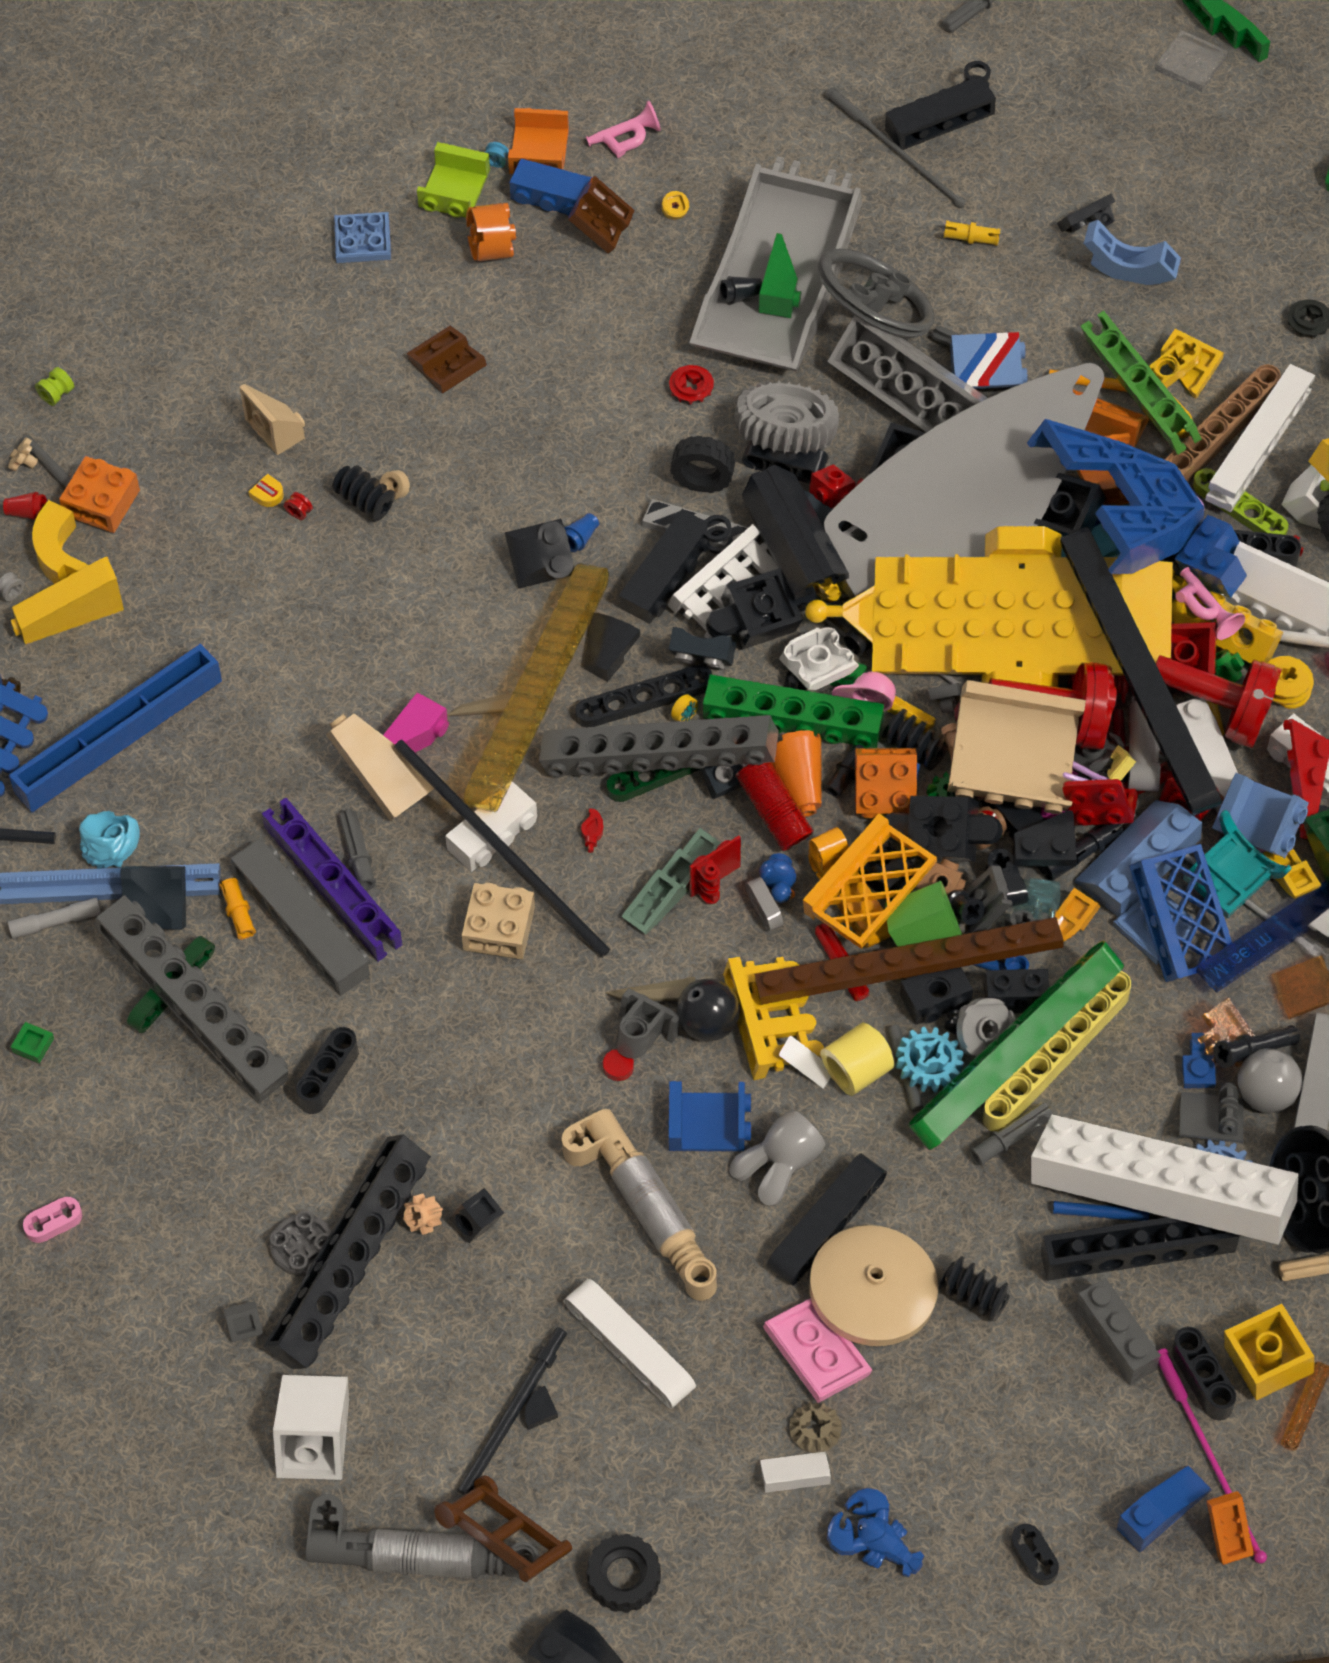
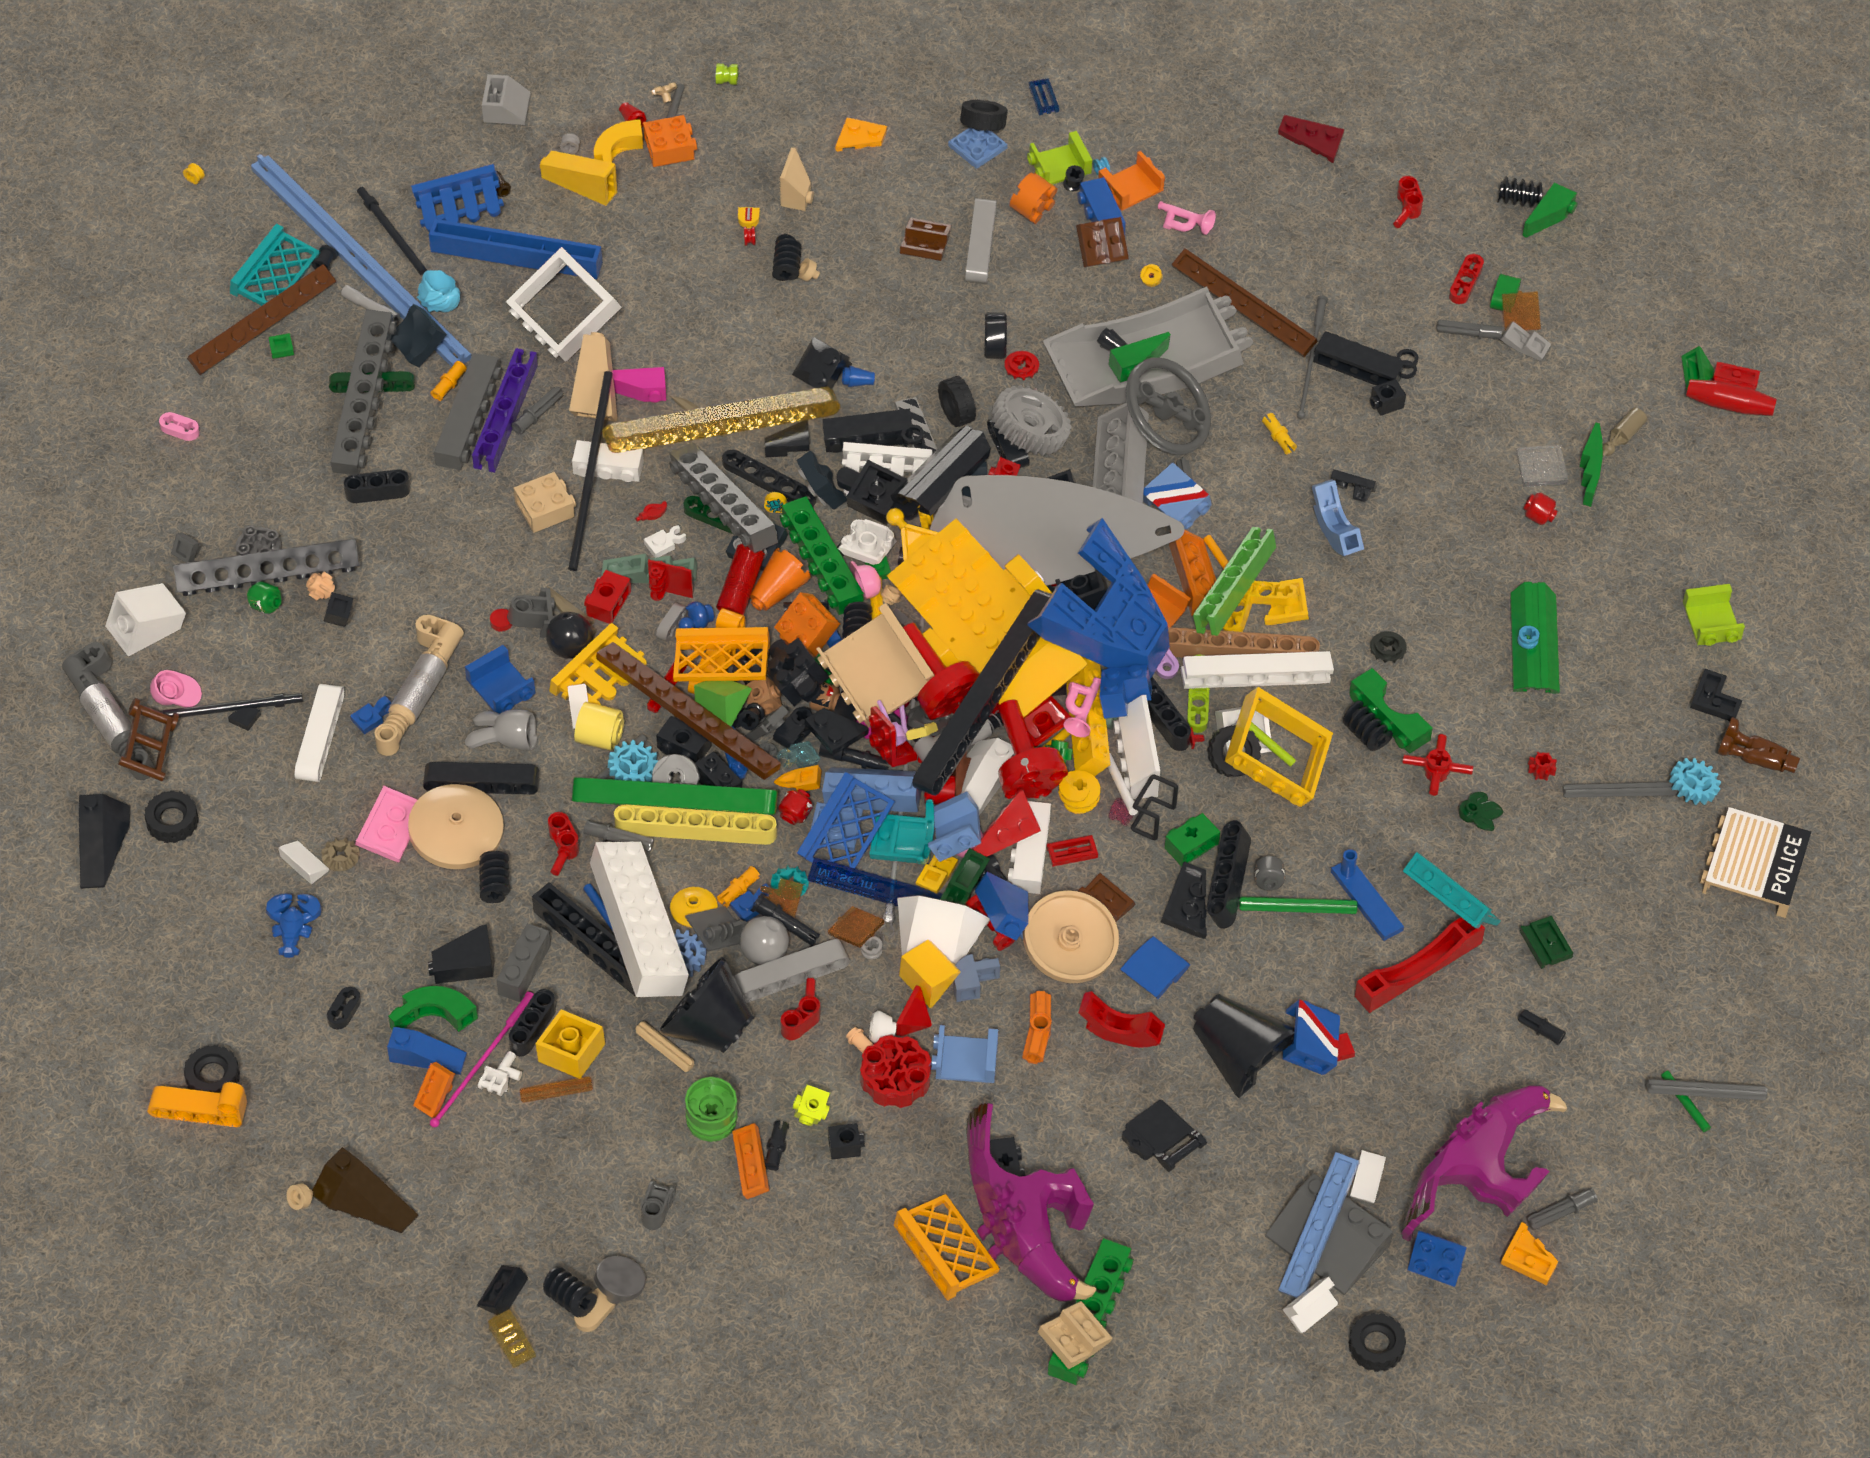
camera: 50 degrees right, 5 degrees down
(246, 682) = (591, 323): none -> white window
(250, 325) = (860, 134): none -> light orange wing
(339, 204) = (983, 115): none -> black tyre
(351, 146) = (1054, 107): none -> clear blue tile
(388, 1282) = (264, 597): none -> green head
(443, 1457) = (175, 688): none -> bright pink cap
(488, 185) = (1073, 178): none -> black bush
(497, 313) = (981, 240): none -> light grey beam
(637, 373) = (995, 335): none -> black animal
(643, 846) = (662, 543): none -> white plate
(645, 1280) = (371, 717): none -> blue plate
(678, 926) = (608, 596): none -> red brick
(806, 149) = (1245, 303): none -> reddish brown plate
(901, 683) = (890, 595): none -> tan plate
(973, 1181) = (562, 837): none -> red beam
(1005, 120) = (1387, 397): none -> black brick
(1064, 1386) = (463, 958): none -> black slope
(1113, 935) = (795, 806): none -> red head
(1113, 1443) = (434, 1002): none -> green arch
(1141, 1121) = (681, 905): none -> yellow dish
(1167, 1062) = (738, 886): none -> light orange pin
(1183, 1007) = (787, 873): none -> teal gear
(1245, 94) = (1540, 508): none -> red head
(1253, 1458) = (497, 1079): none -> white arm

